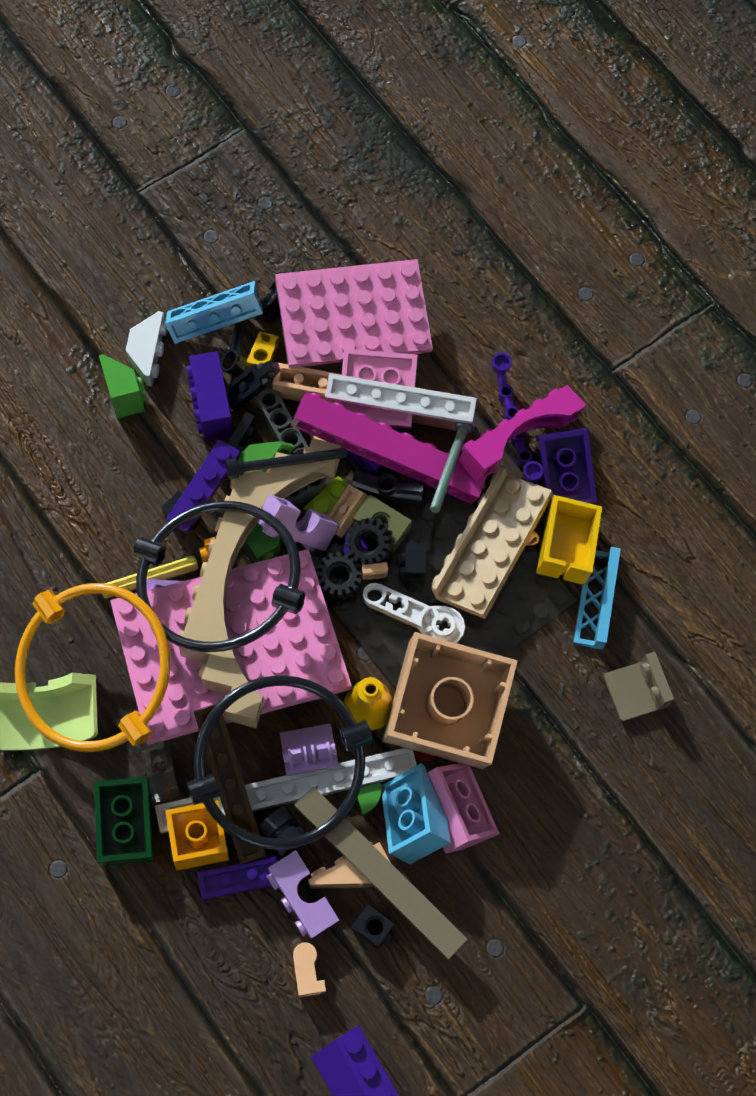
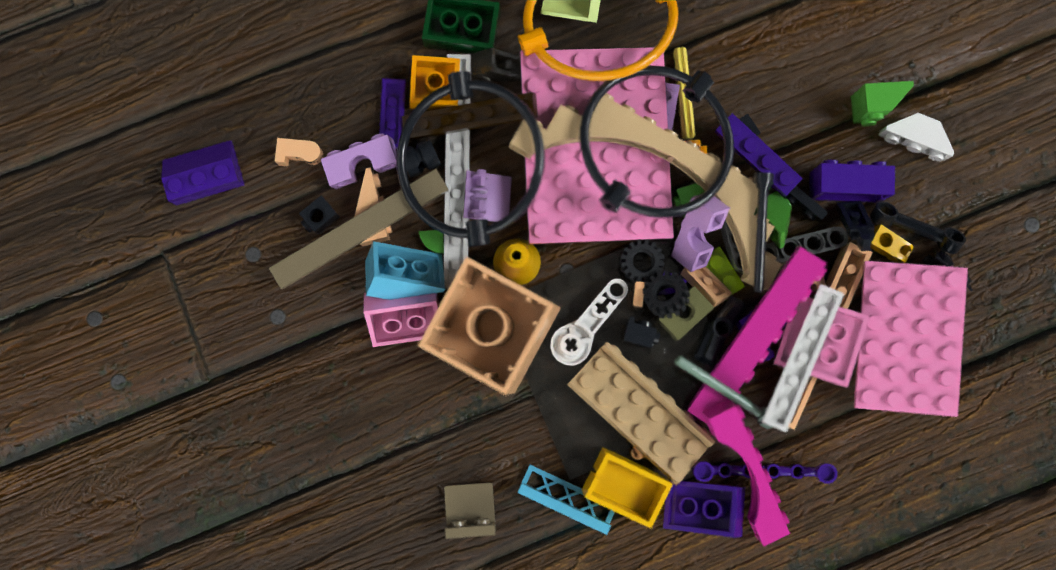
camera: 105 degrees right, 15 degrees up
(213, 312) = (942, 205): medium azure fence -> none

